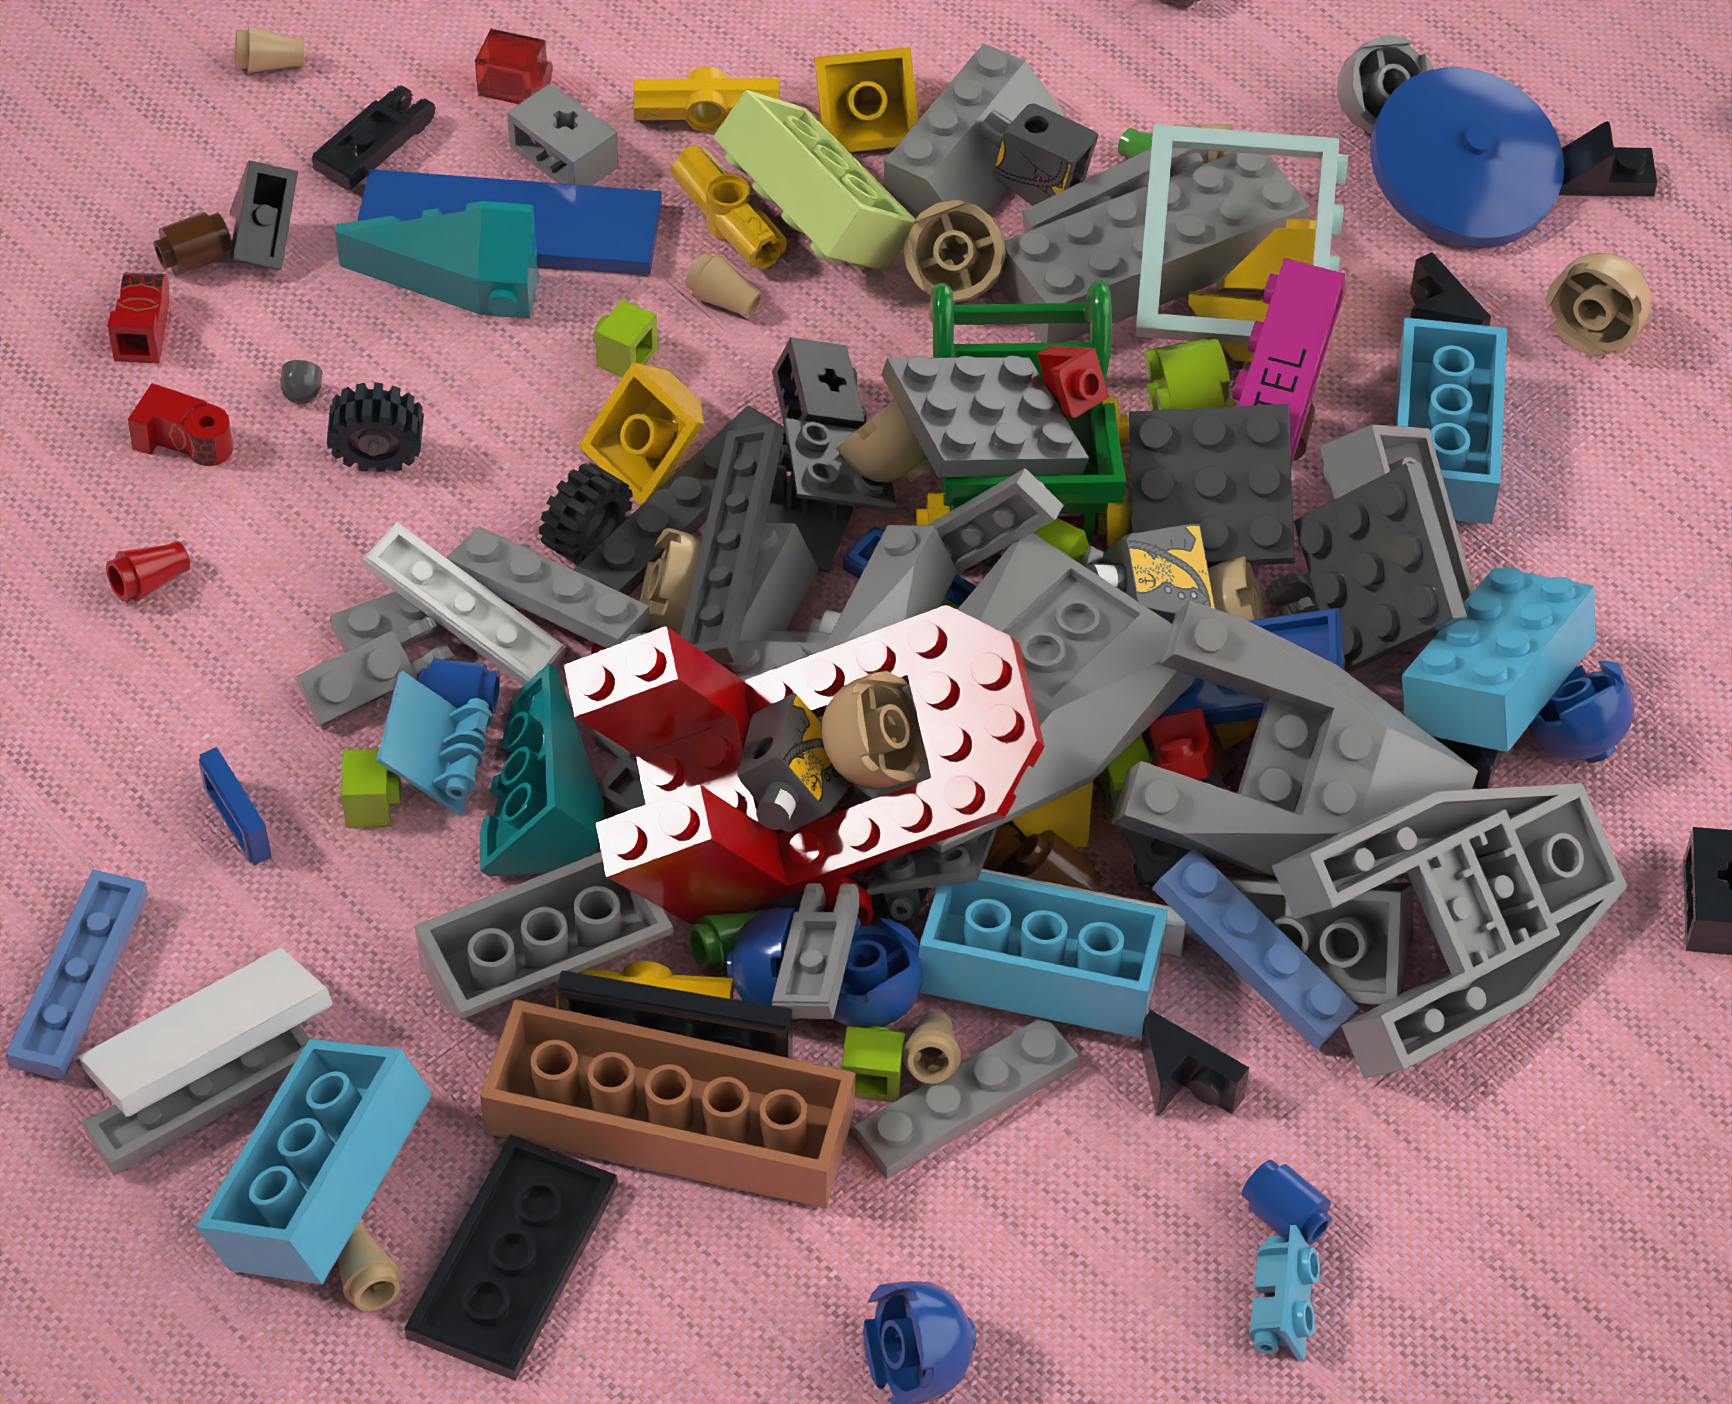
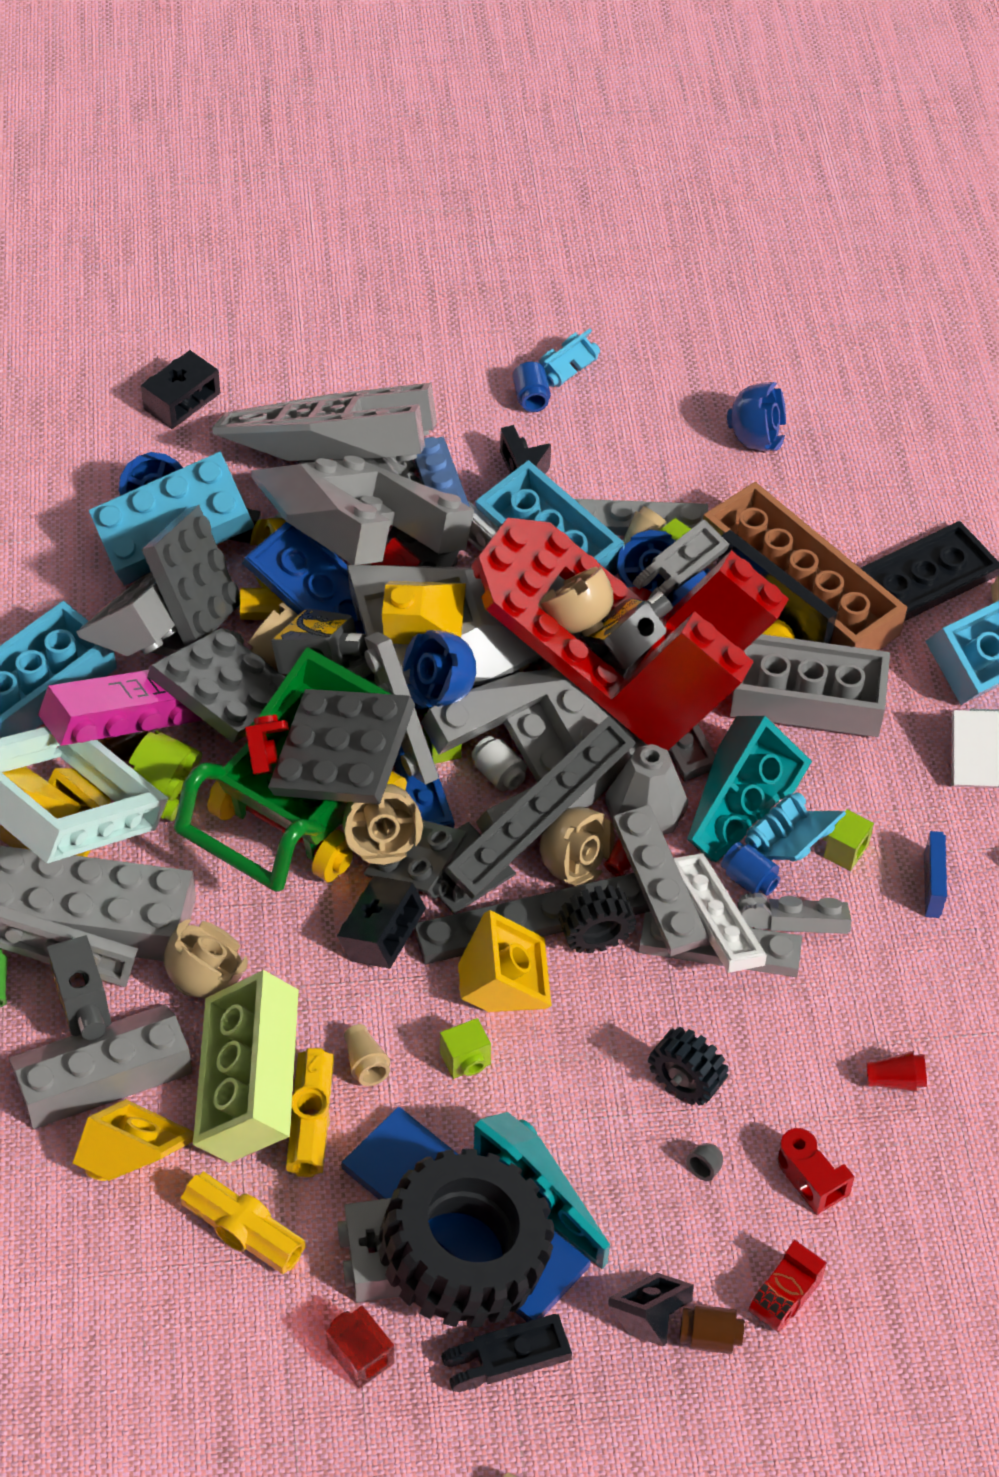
camera: 145 degrees left, 0 degrees up
(460, 89) = (451, 1285): none -> black tyre
(954, 561) = (440, 668): none -> blue cylinder
(1050, 604) = (422, 606): none -> yellow slope

